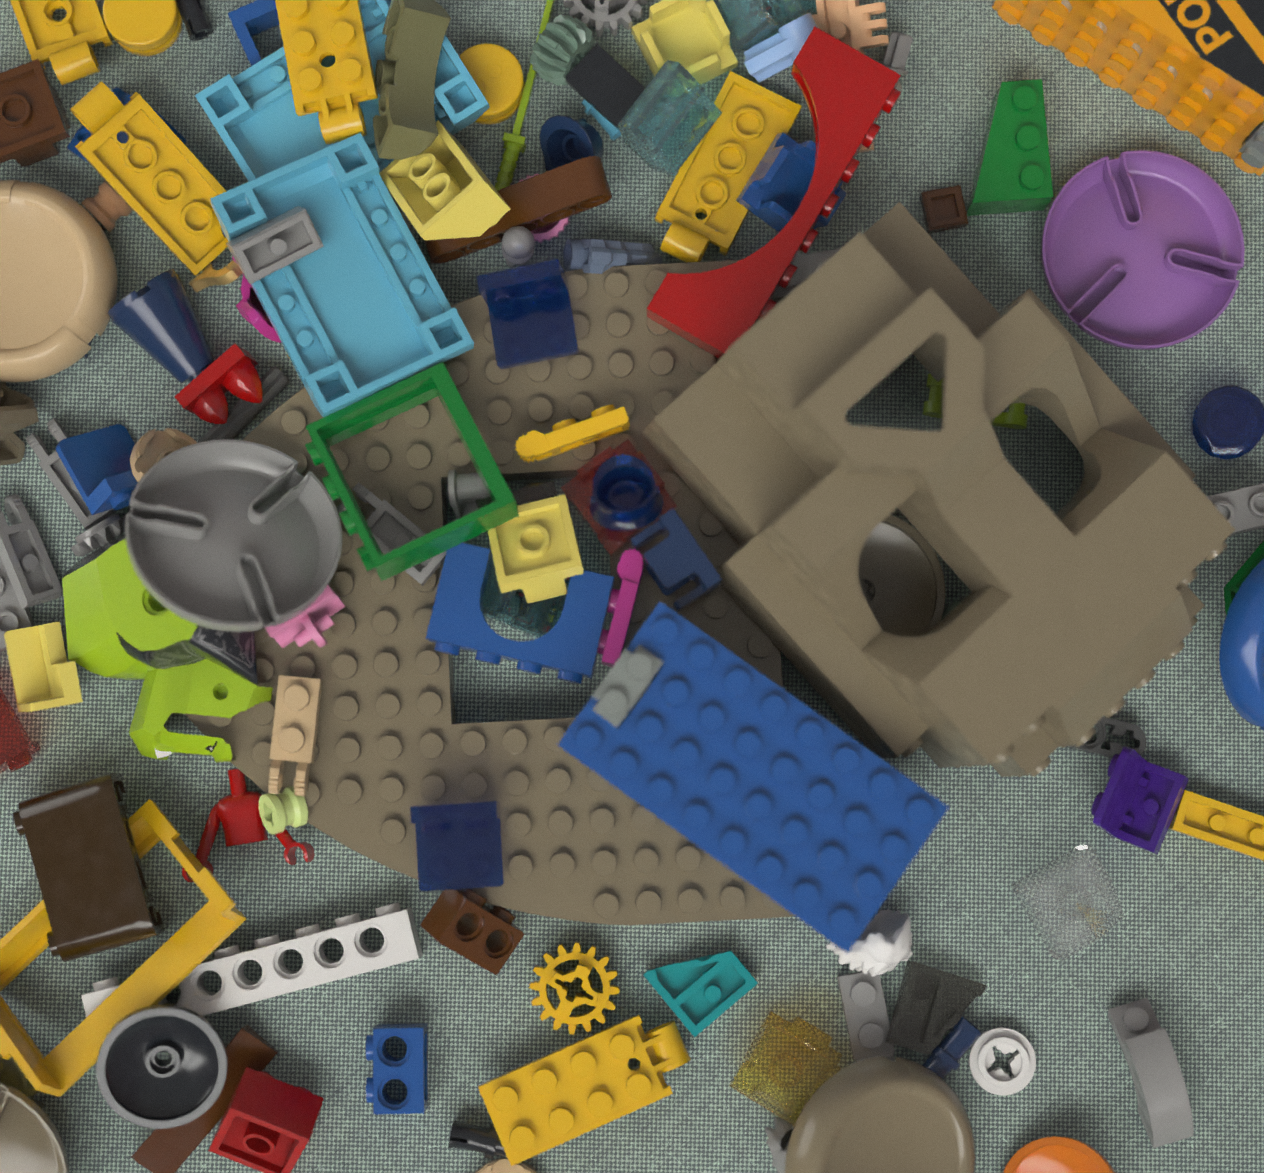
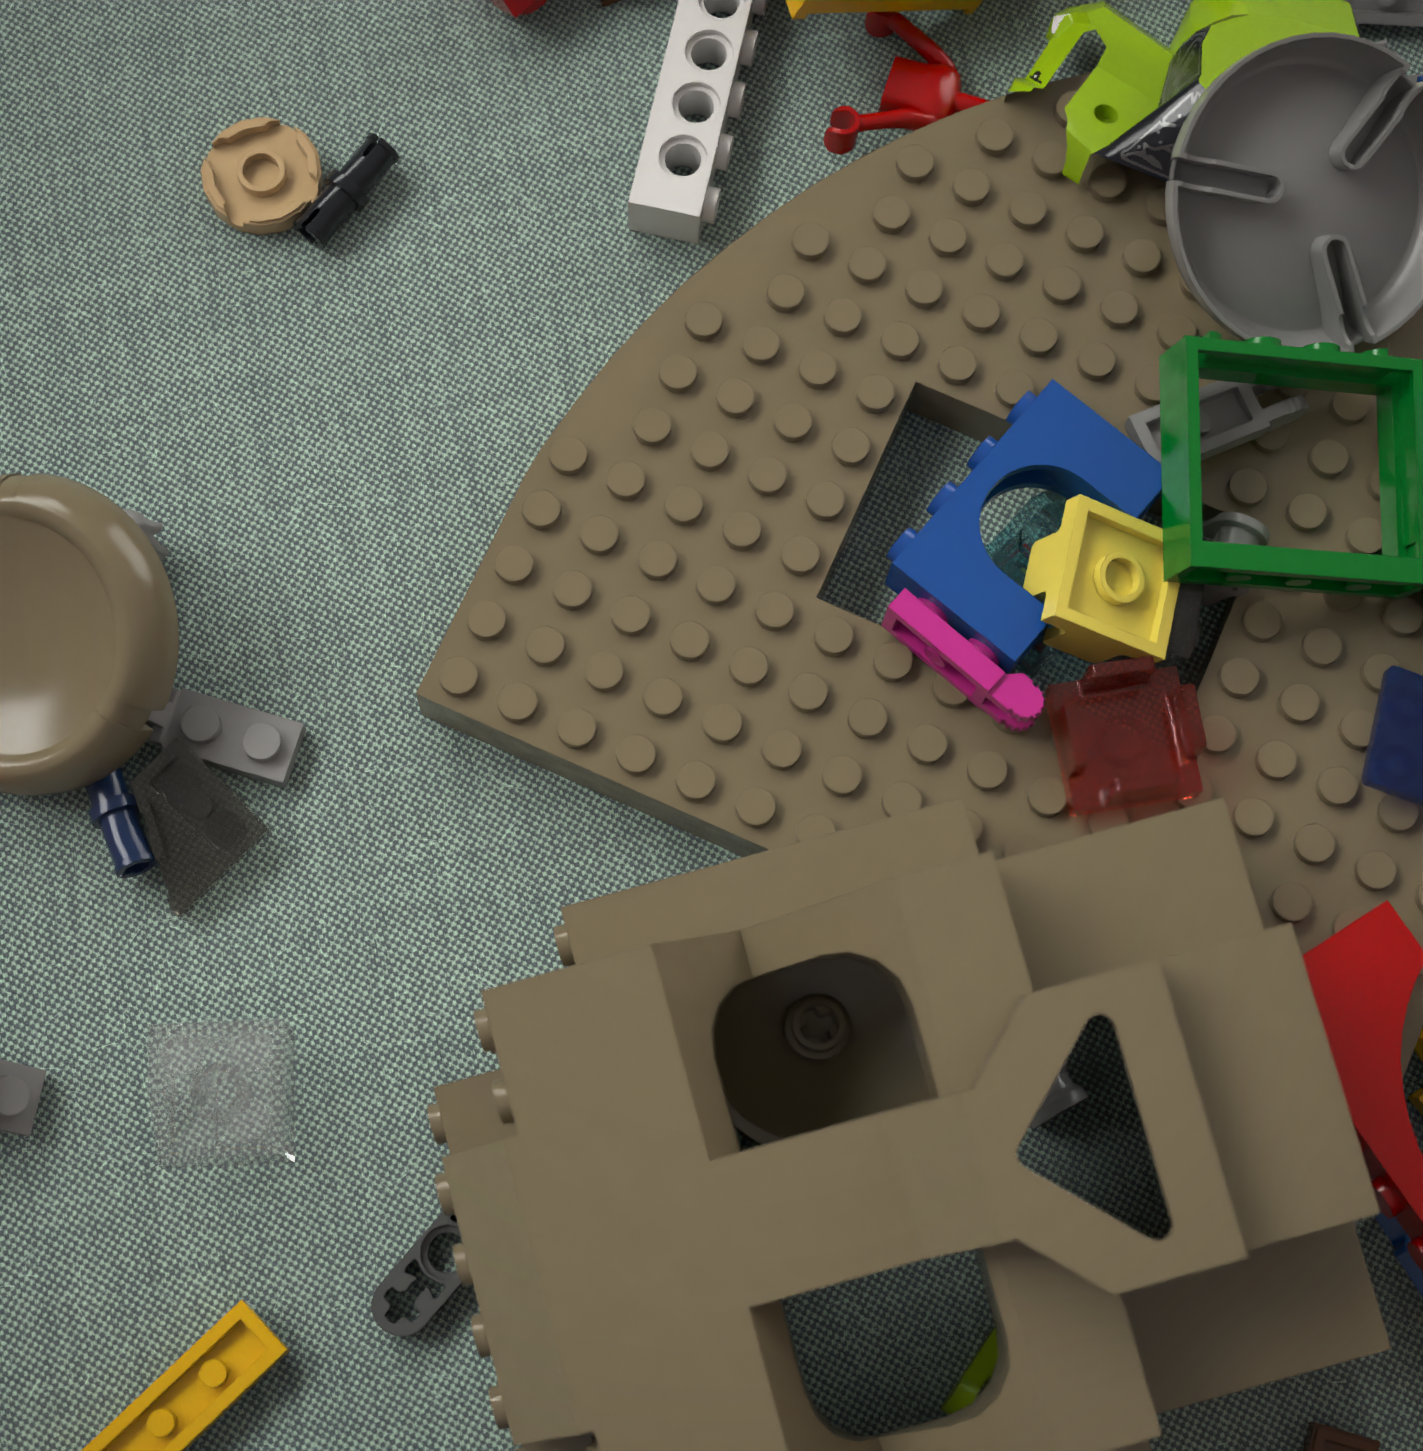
camera: 110 degrees right, 10 degrees down
(282, 810) = (909, 126): yellowish green wheel -> none
(294, 730) = (1005, 177): tan hinge -> none
(309, 623) = (1148, 259): bright pink hips -> none
(410, 1069) = (492, 136): blue brick -> none
(458, 845) = (751, 301): clear blue bracket -> none
(473, 929) = (623, 273): reddish brown brick -> none
(556, 978) = (473, 404): yellow gear -> none
(571, 435) = (1244, 716): yellow hinge -> none
(582, 1086) = (350, 325): yellow hinge -> none
(625, 494) = (1127, 726): clear blue piece -> none
(677, 560) = (999, 755): dark blue panel -> none
(701, 987) = (392, 540): teal wing -> none
(753, 776) = (643, 689): blue piece -> none
(786, 1066) = (228, 589): clear yellow panel -> none
(880, 945) = (321, 788): white hair -> none
(1021, 1064) = (43, 866): white gear -> none
(1138, 801) = (311, 1265): dark purple bracket -> none

